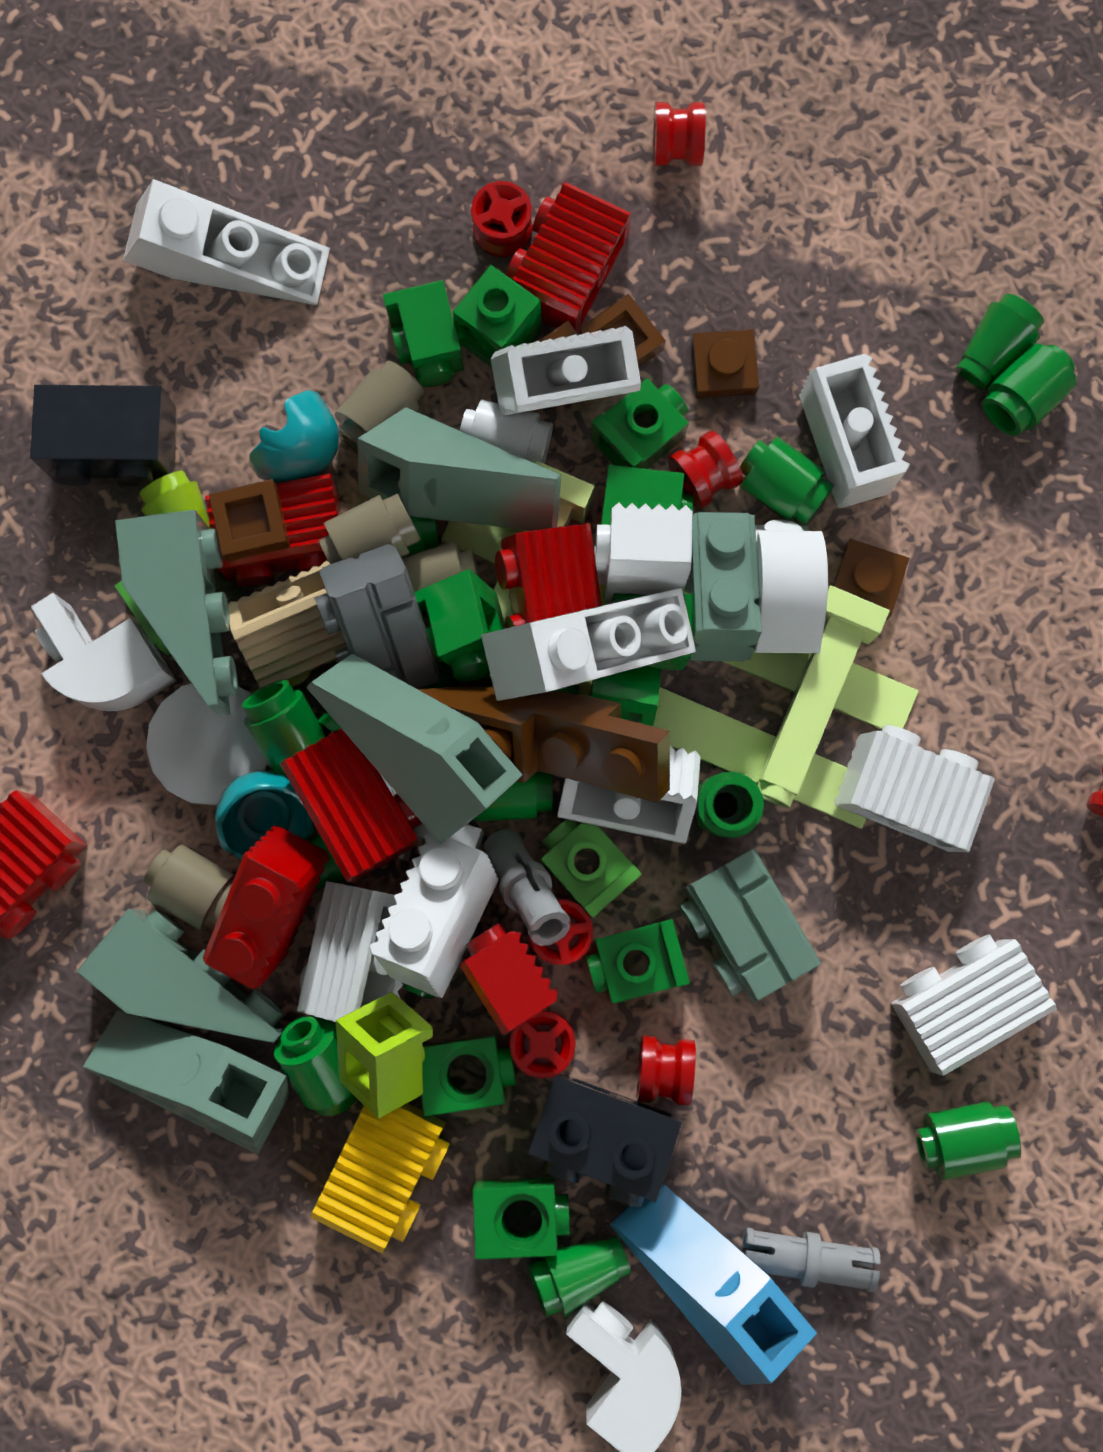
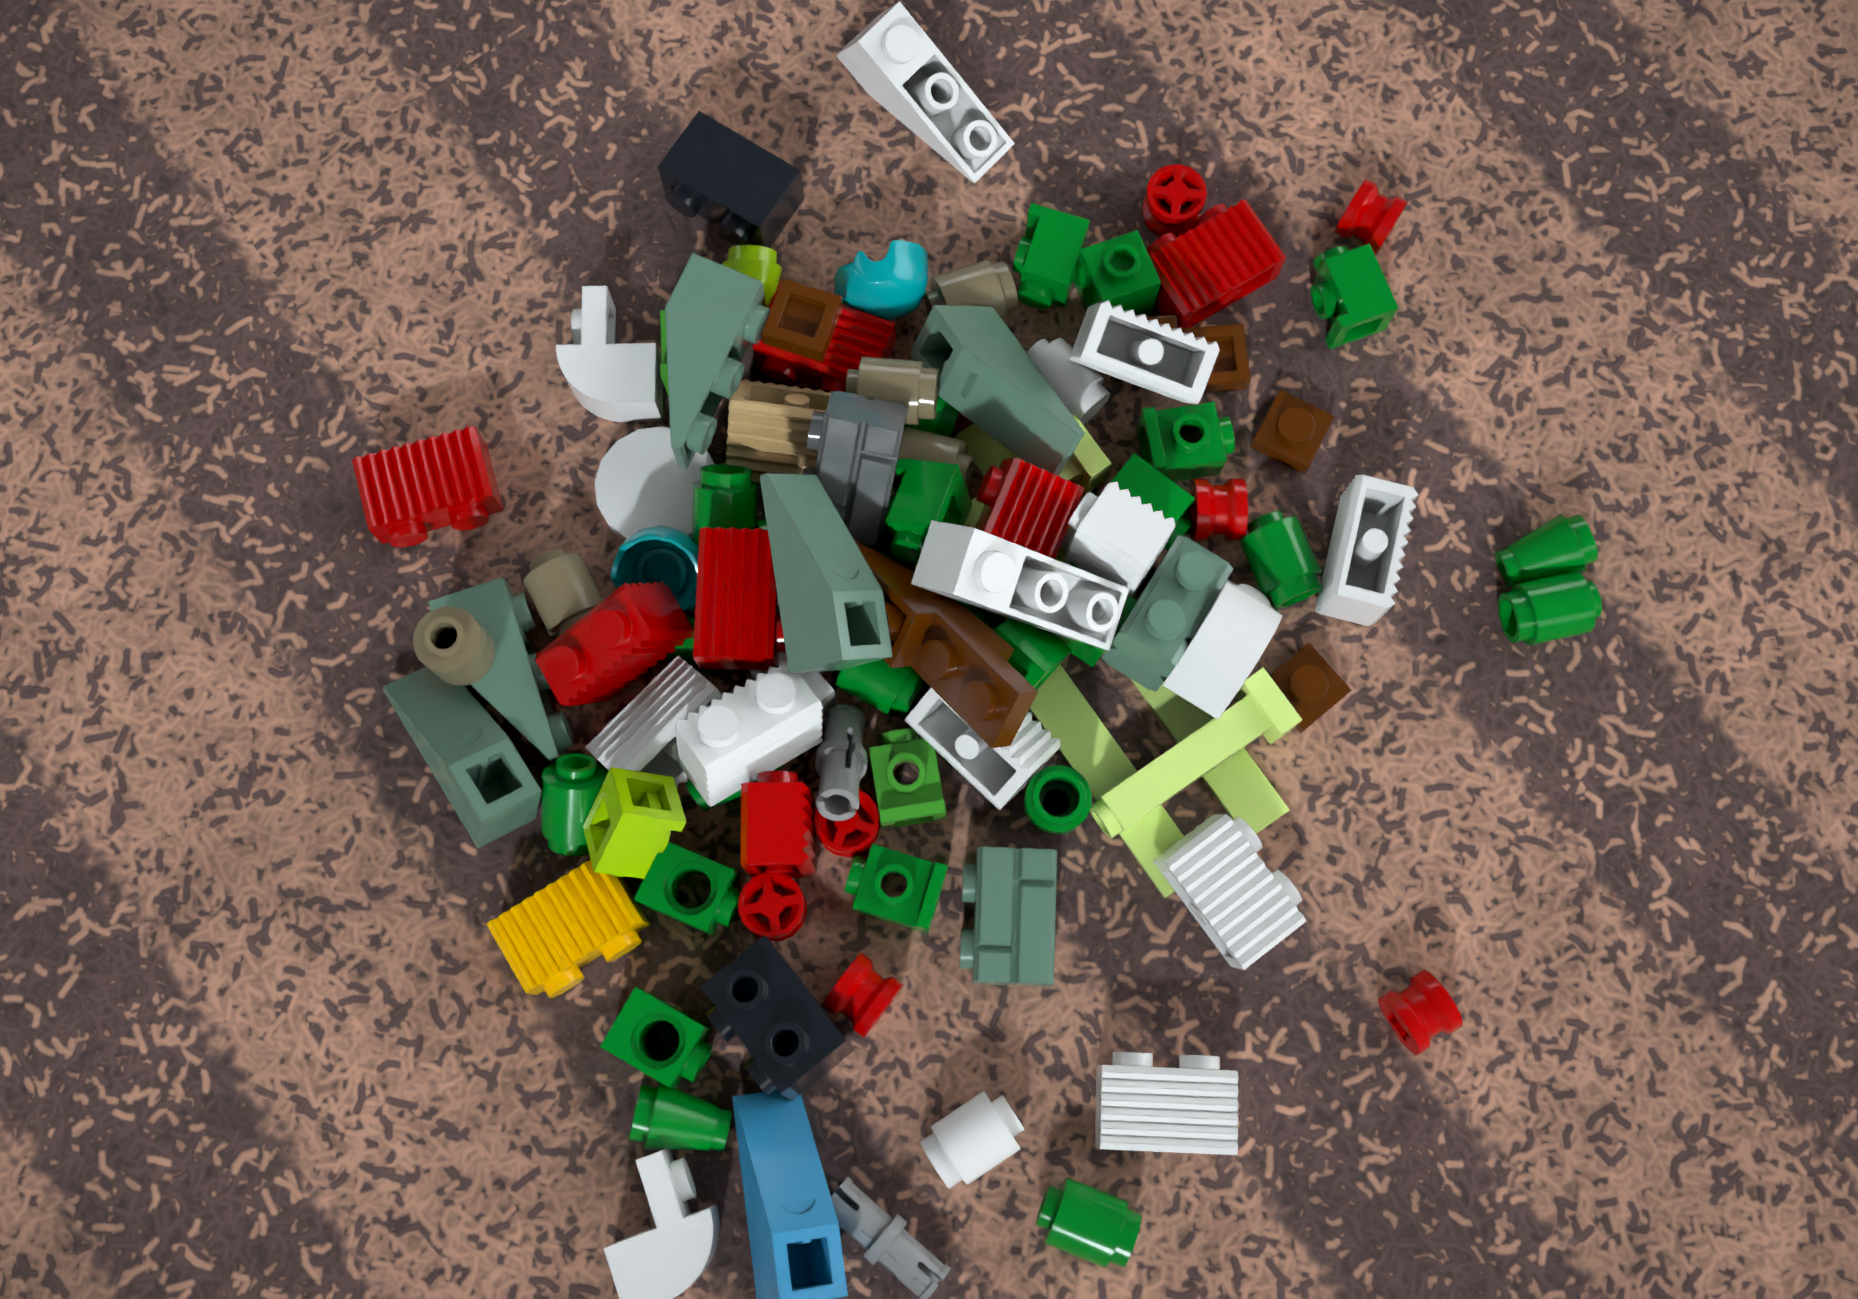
camera: 30 degrees right, 5 degrees down
(148, 996) = (458, 663): none -> dark tan brick
(703, 212) = (1351, 294): none -> green brick
(831, 1132) = (972, 1139): none -> white brick

